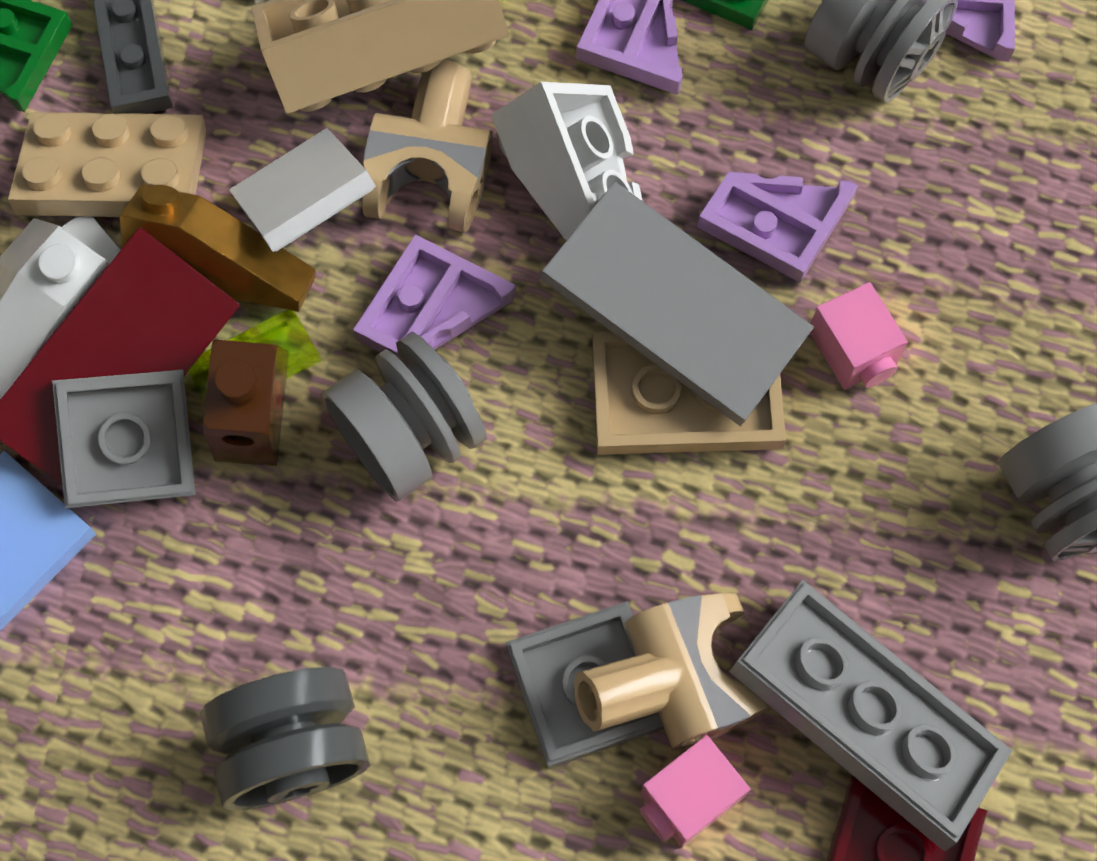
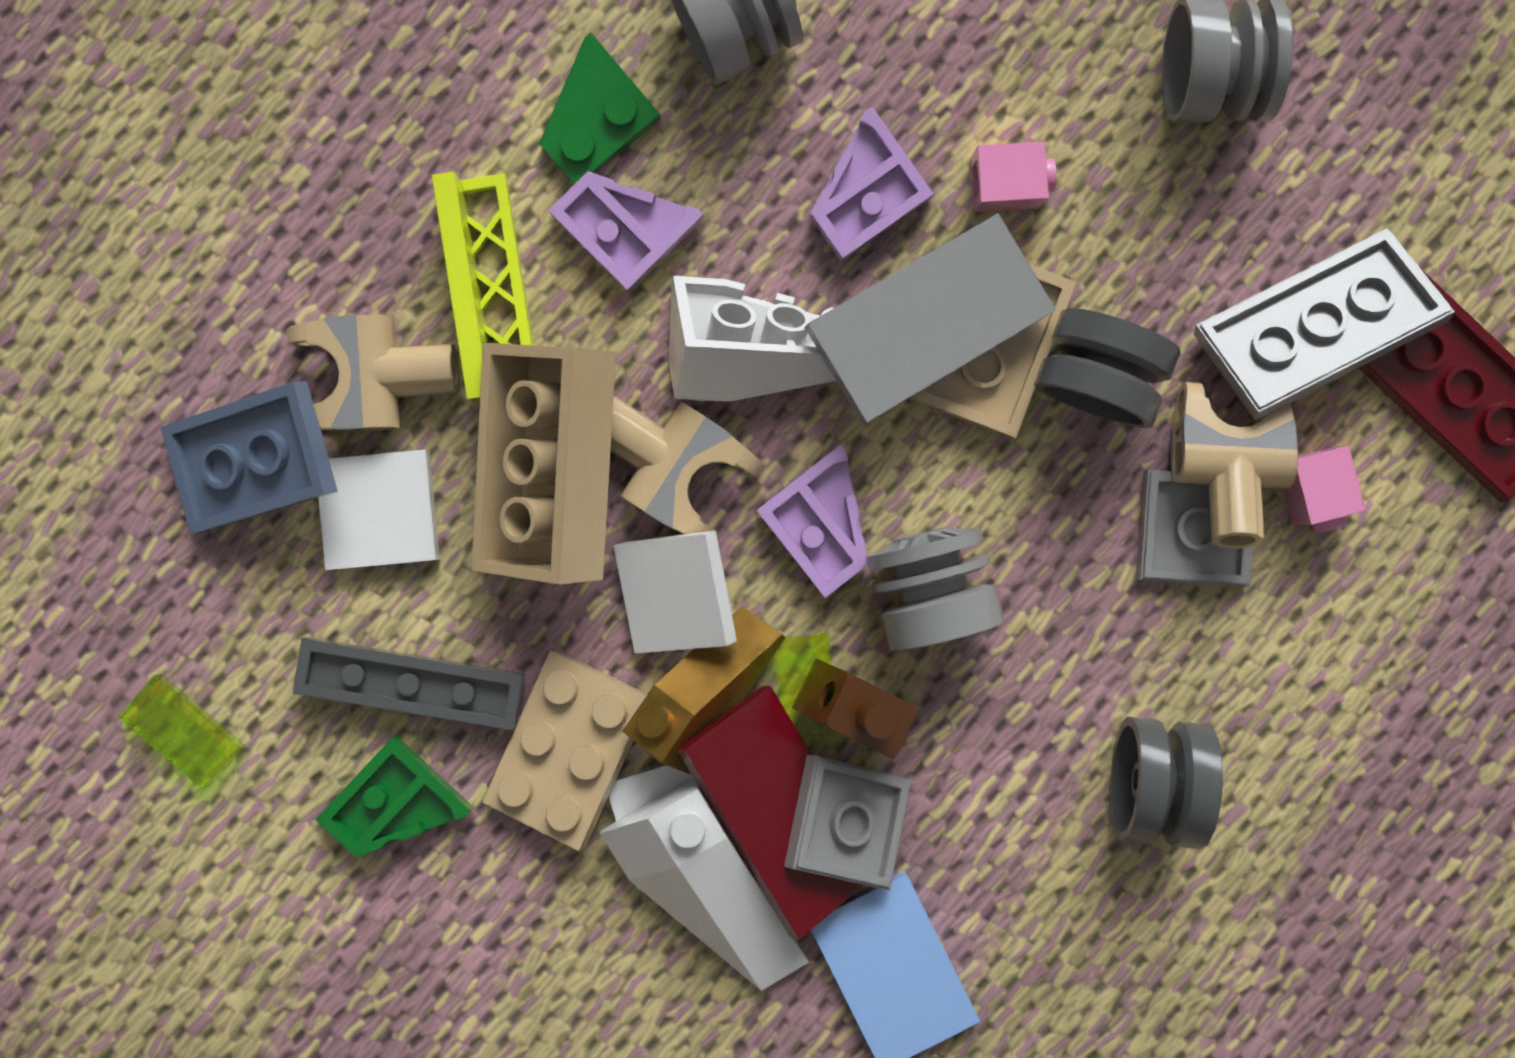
camera: 65 degrees left, 20 degrees up
(717, 491) = (1107, 367): none -> dark grey wheel

